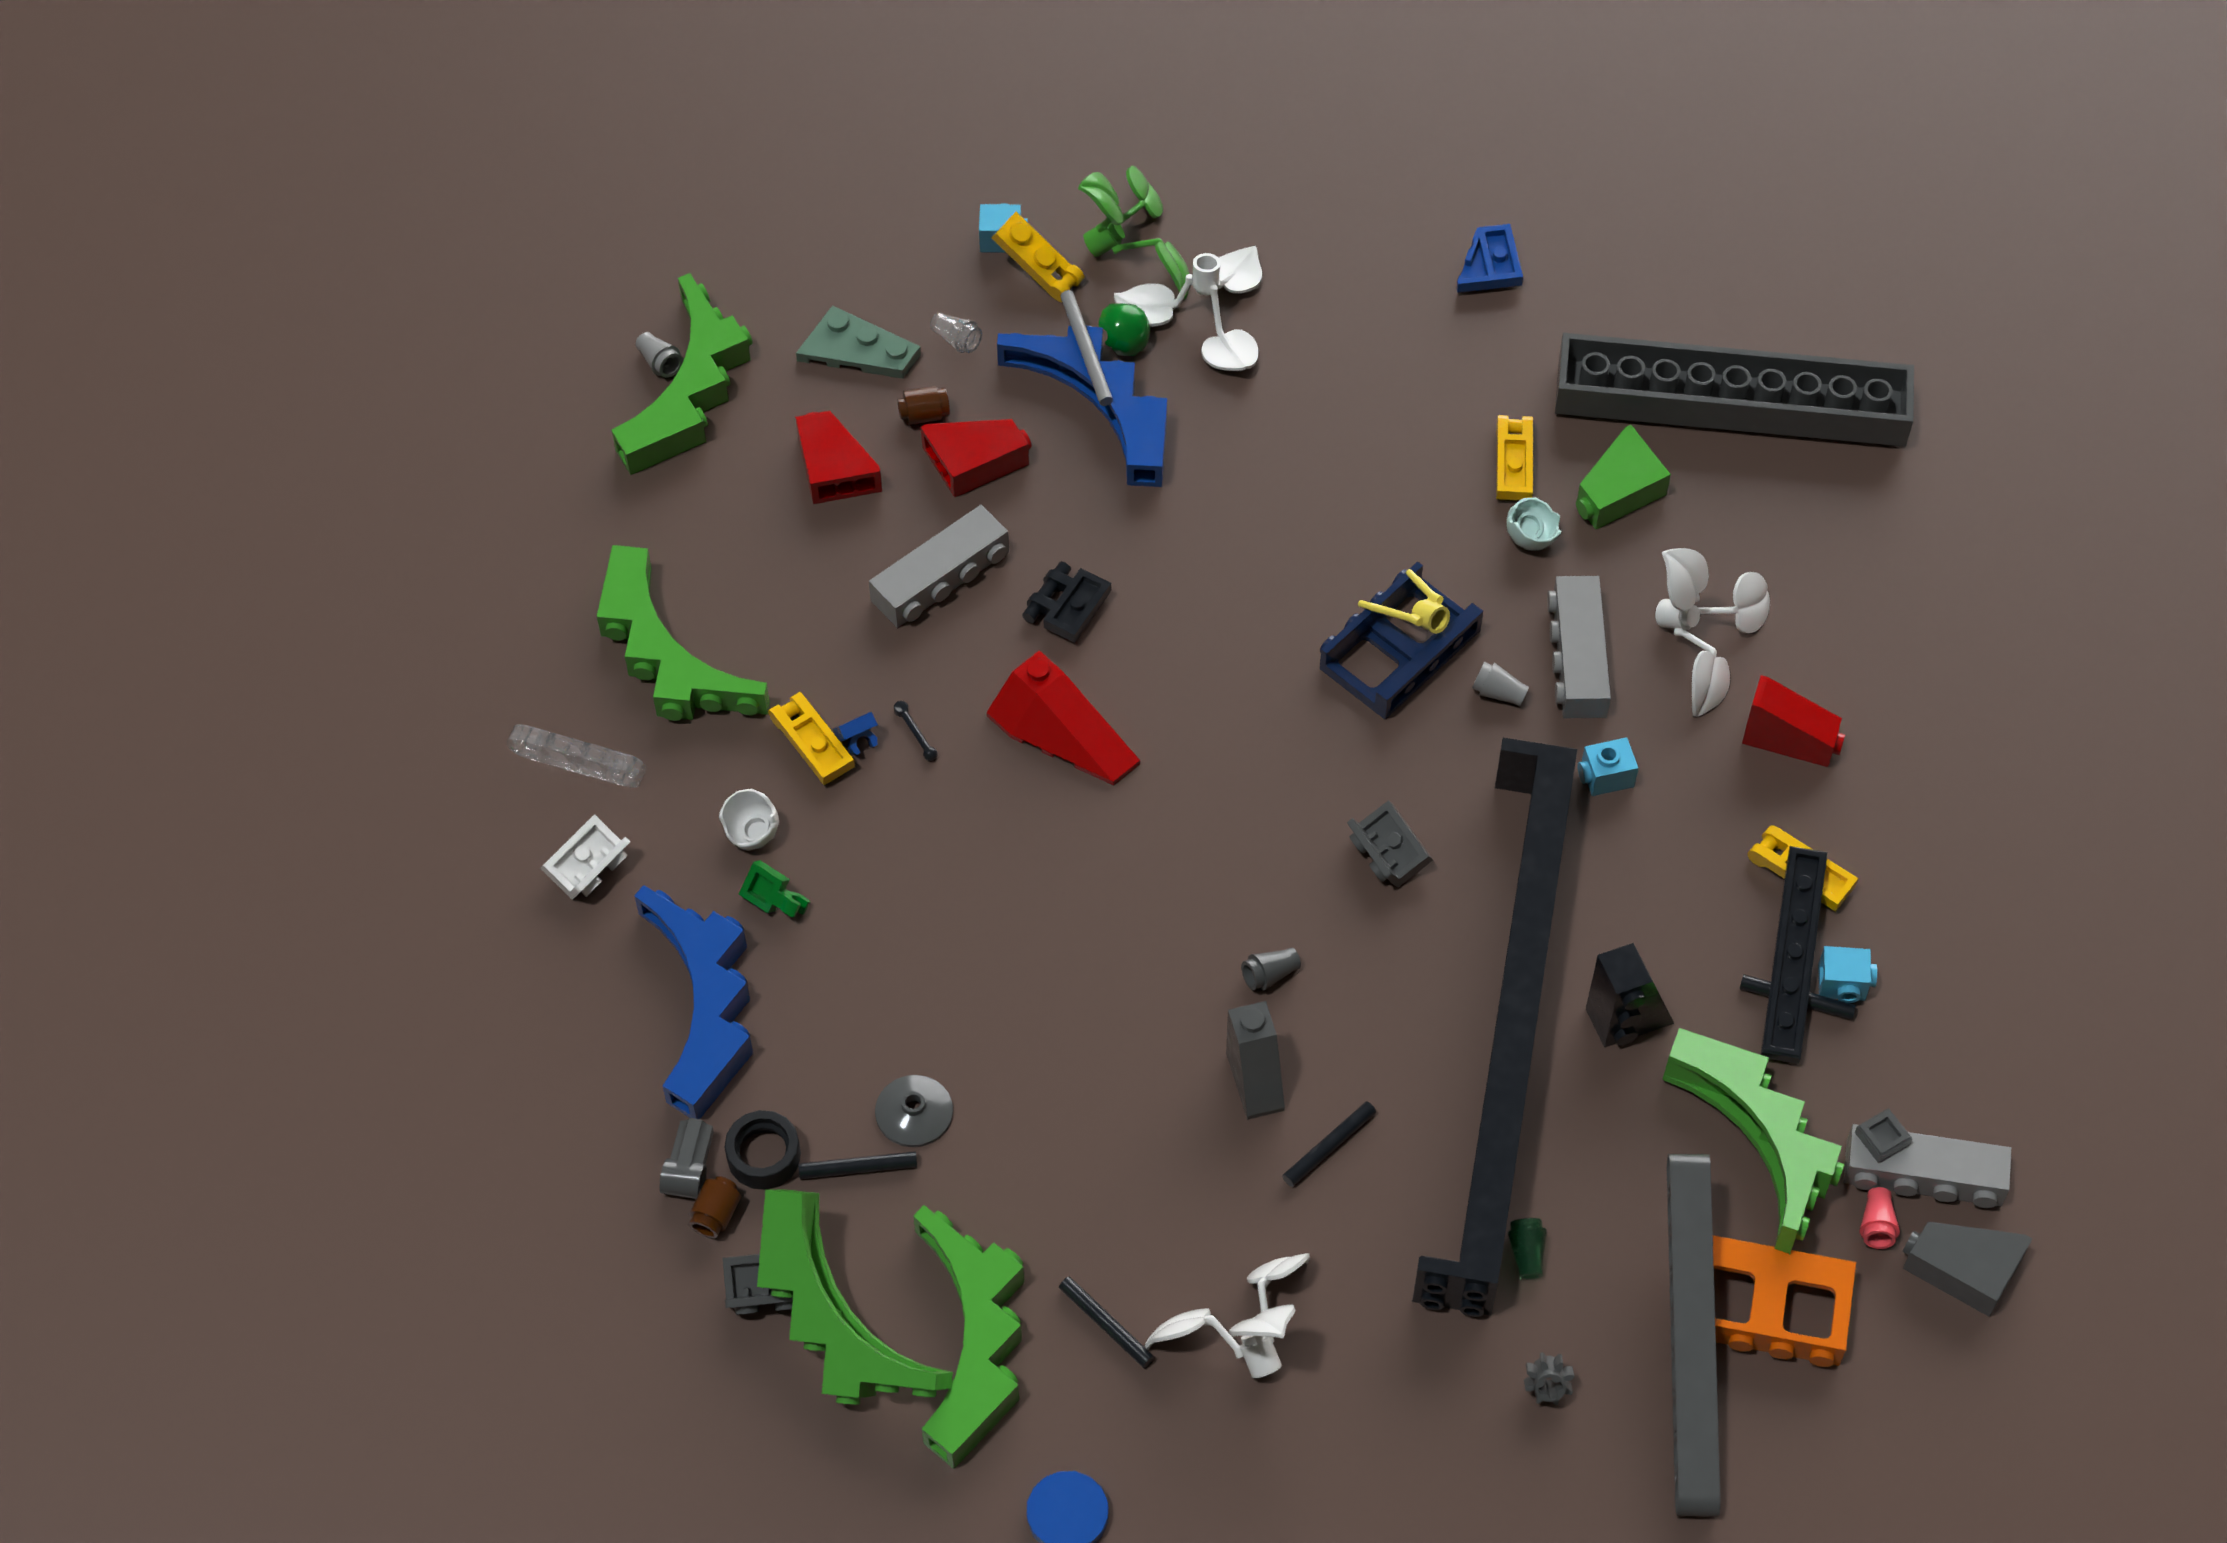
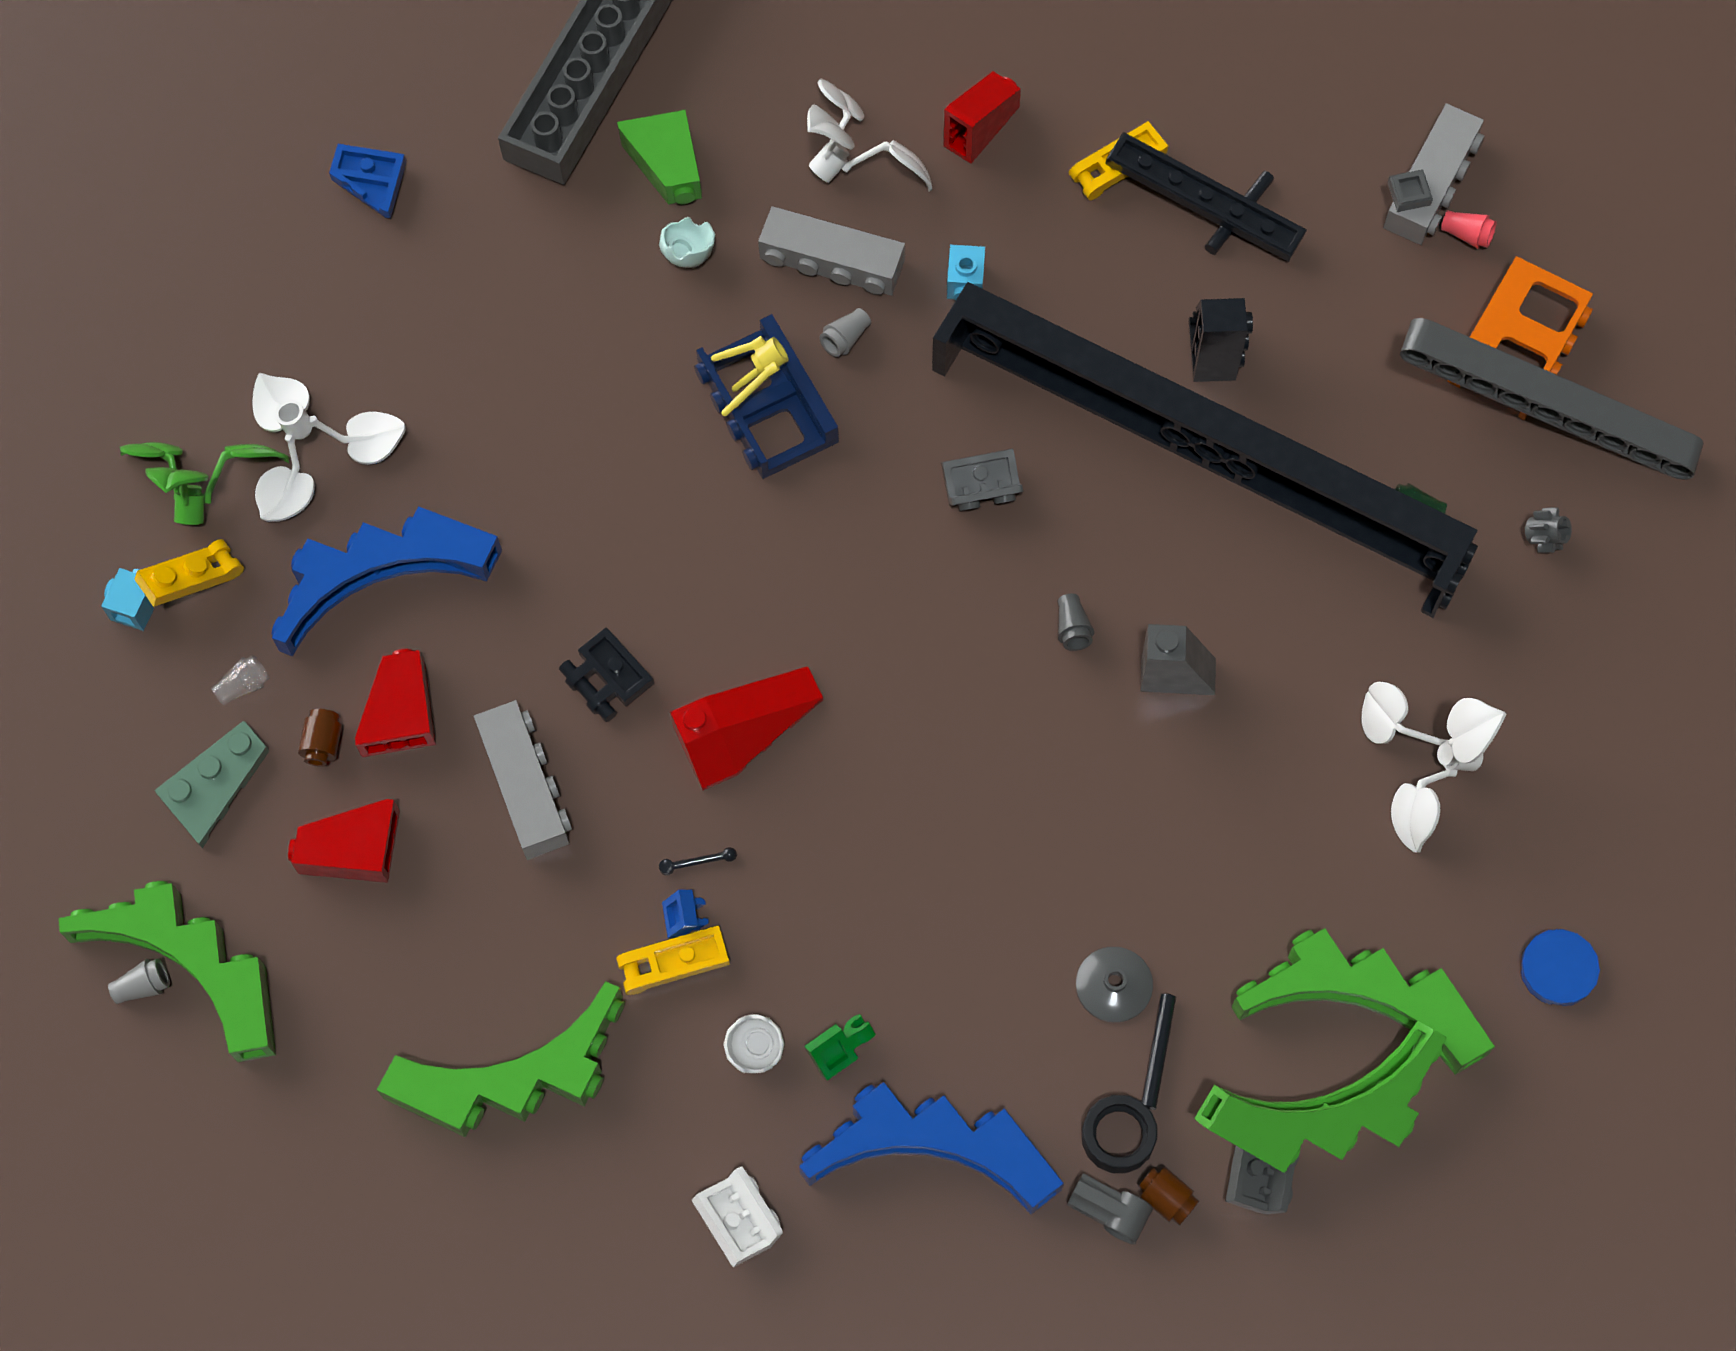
camera: 70 degrees left, 10 degrees up
(576, 756) = (610, 1197): clear beam -> none
(1086, 348) = (329, 559): light grey bar -> none
(1106, 1322) = (1383, 878): black bar -> none
(1126, 328) = (311, 517): green hair -> none
(1329, 1144) = (1264, 633): black bar -> none
(1514, 458) = (601, 233): yellow plate -> none
(1738, 1087) = (1366, 271): arch -> none
(1846, 973) = (1237, 164): medium azure brick -> none
(1966, 1261) = (1532, 177): dark grey slope -> none

